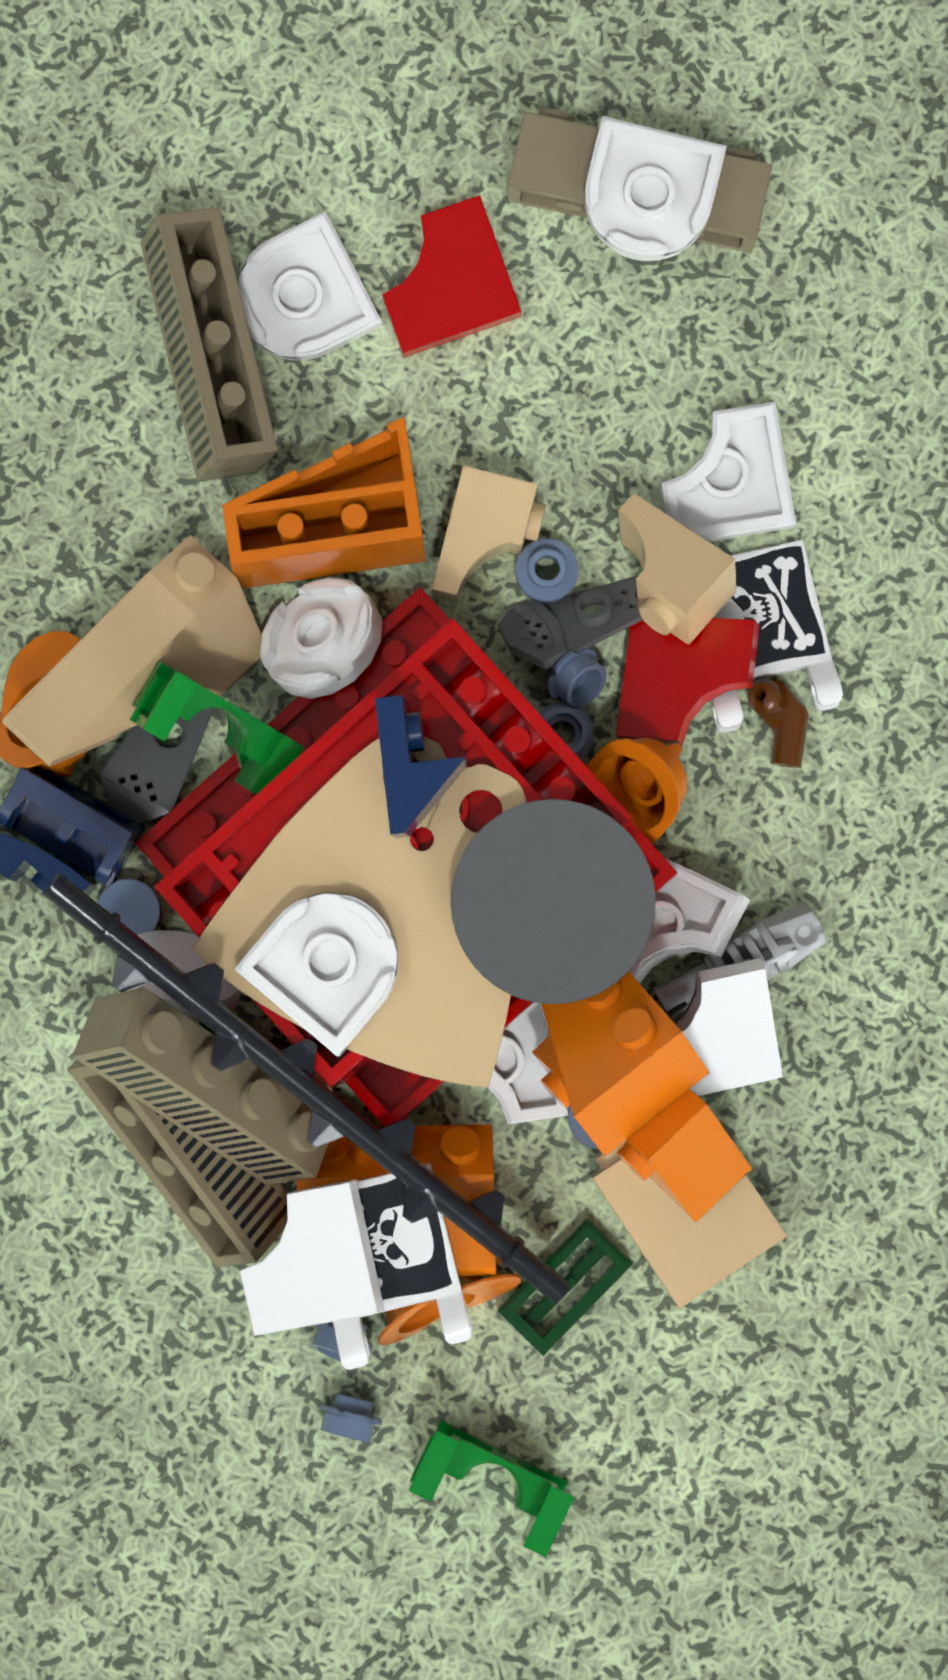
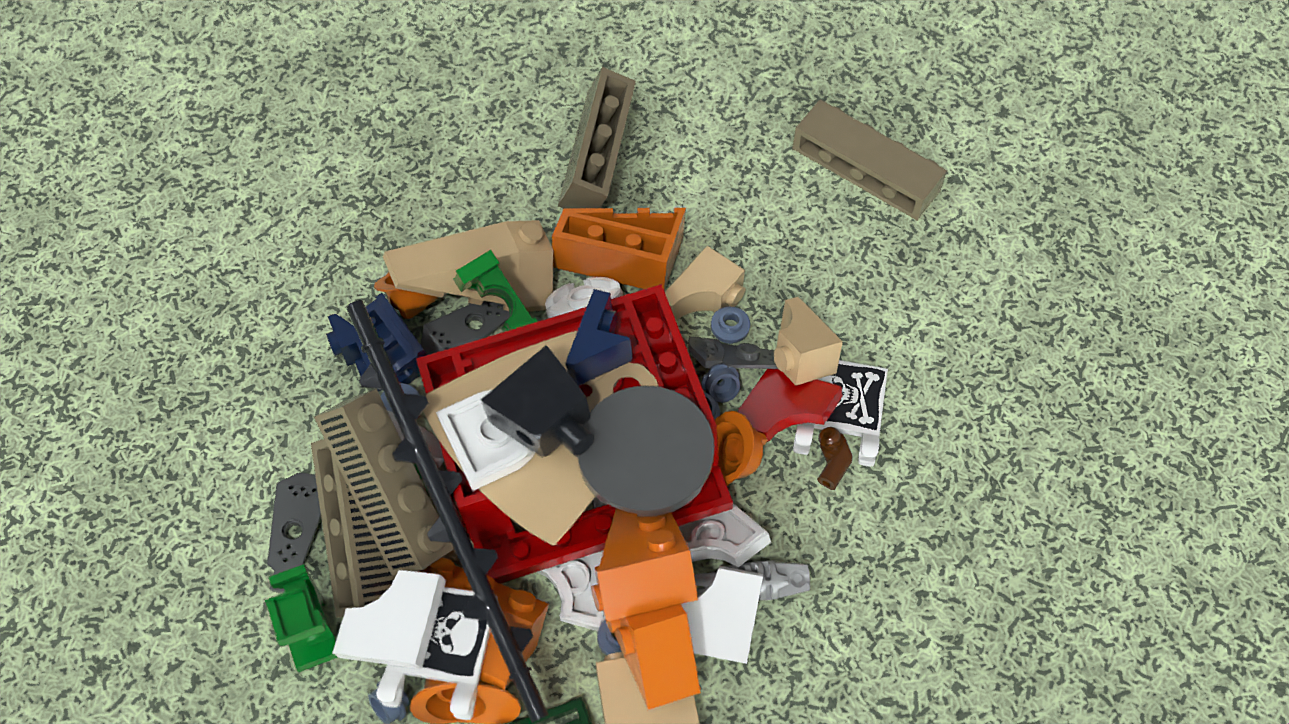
camera: 25 degrees right, 25 degrees down
(61, 1140) = (290, 512): none -> dark grey piece
(186, 1302) = (300, 618): none -> green piece
(305, 293) = (661, 148): white tile -> none
(391, 915) = (541, 407): none -> black torso
(456, 283) = (745, 173): red tile -> none
(650, 189) = (873, 154): white tile -> none
(740, 480) = (864, 322): white tile -> none

